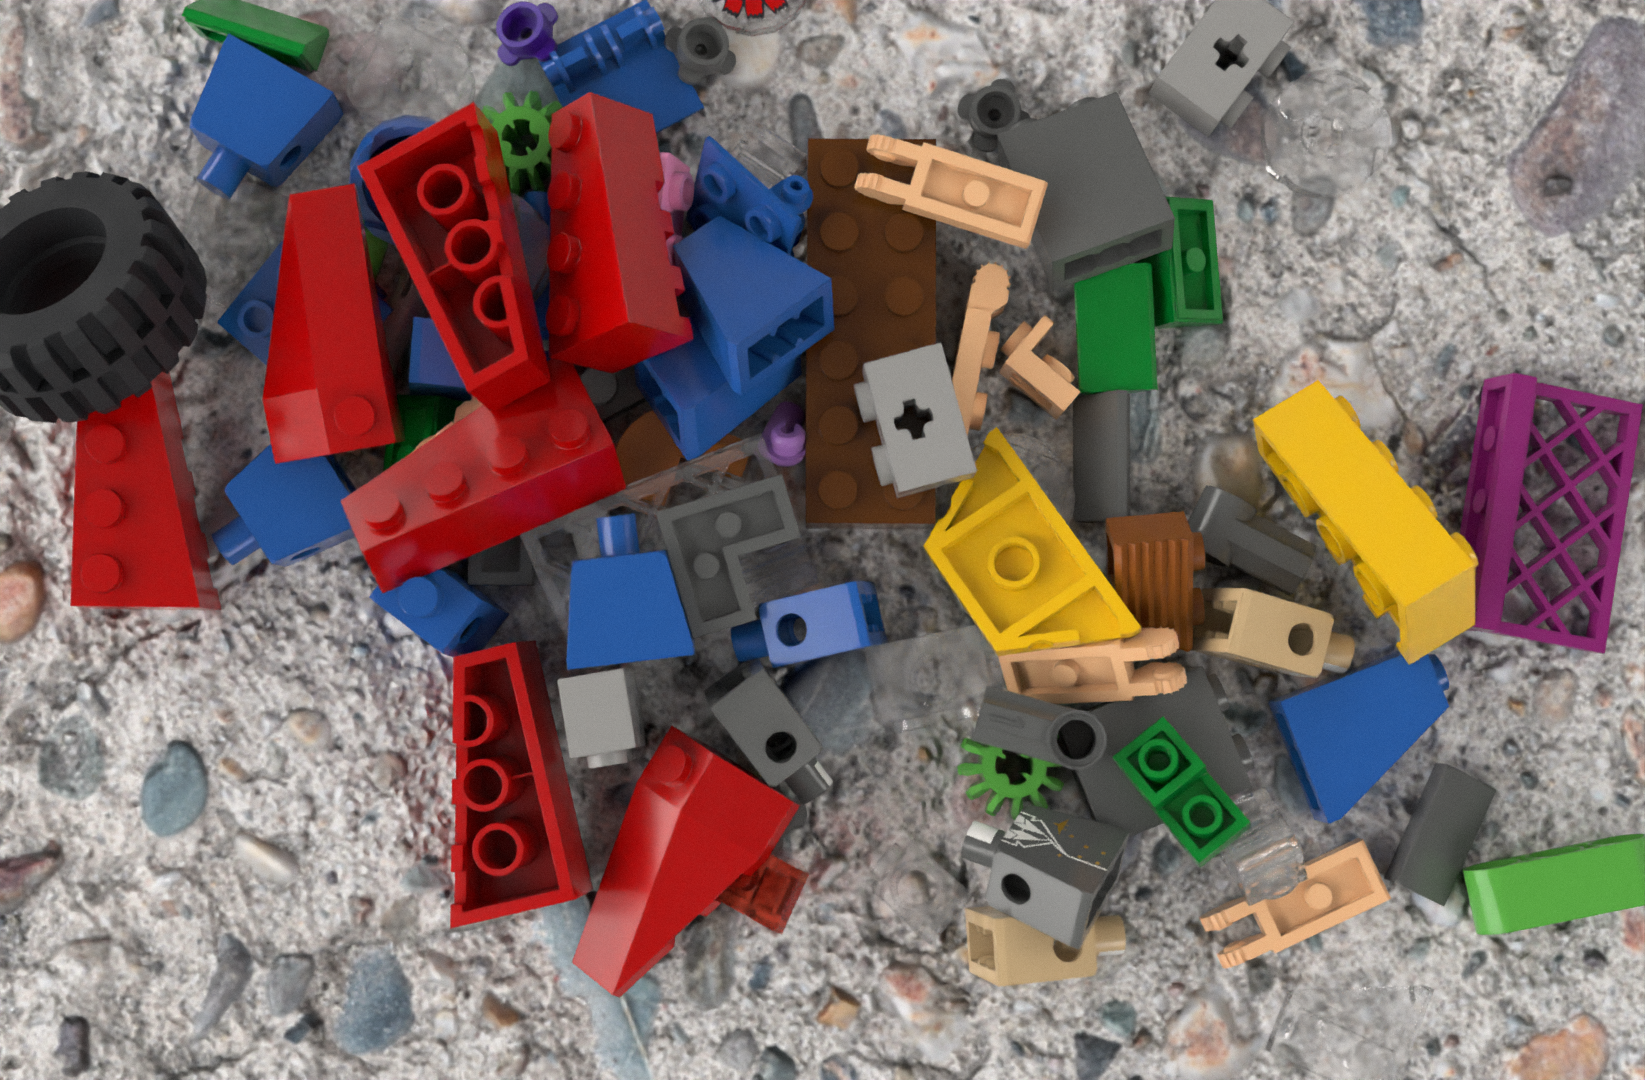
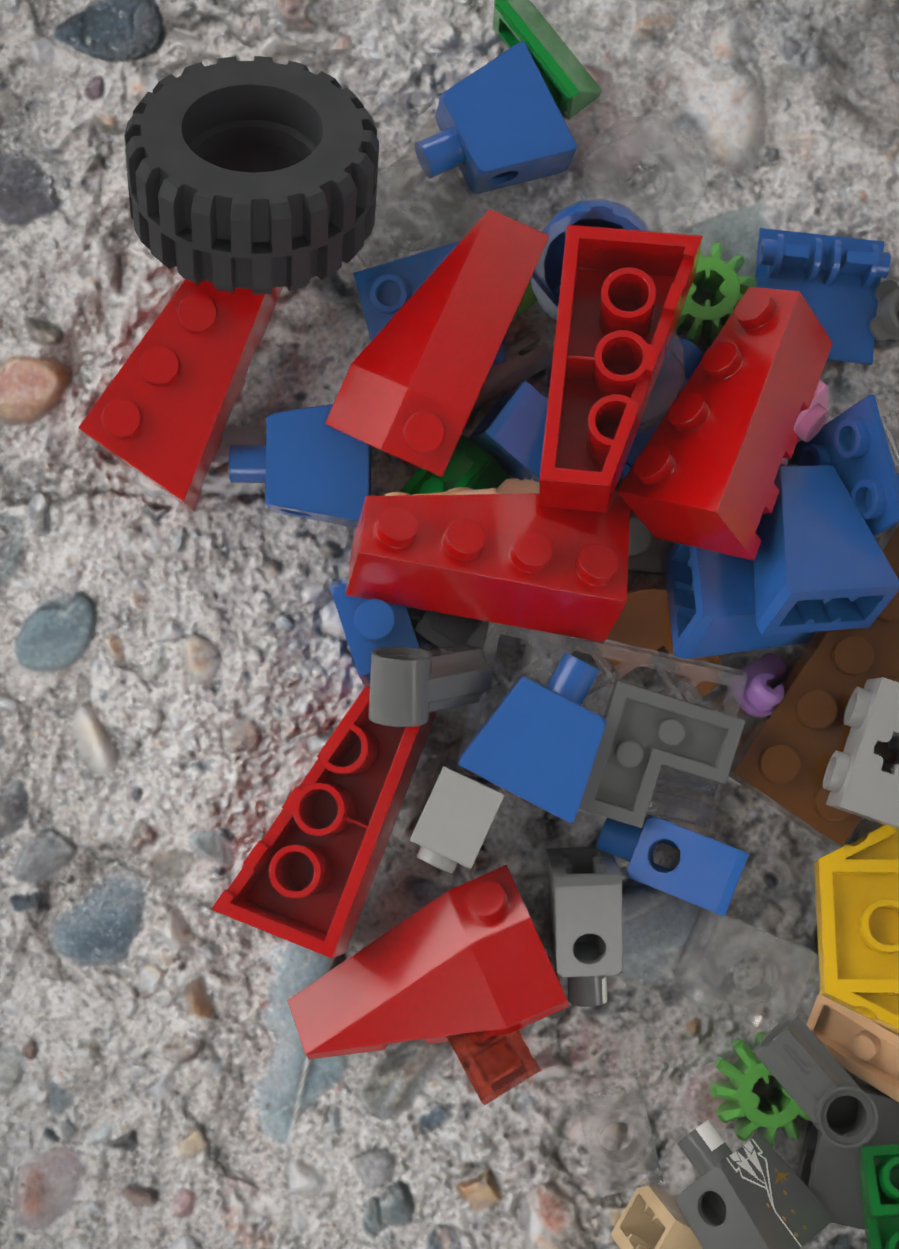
camera: 30 degrees right, 0 degrees up
(488, 626) = (416, 681): none -> dark grey piece
(518, 21) = (766, 189): dark purple plate -> none

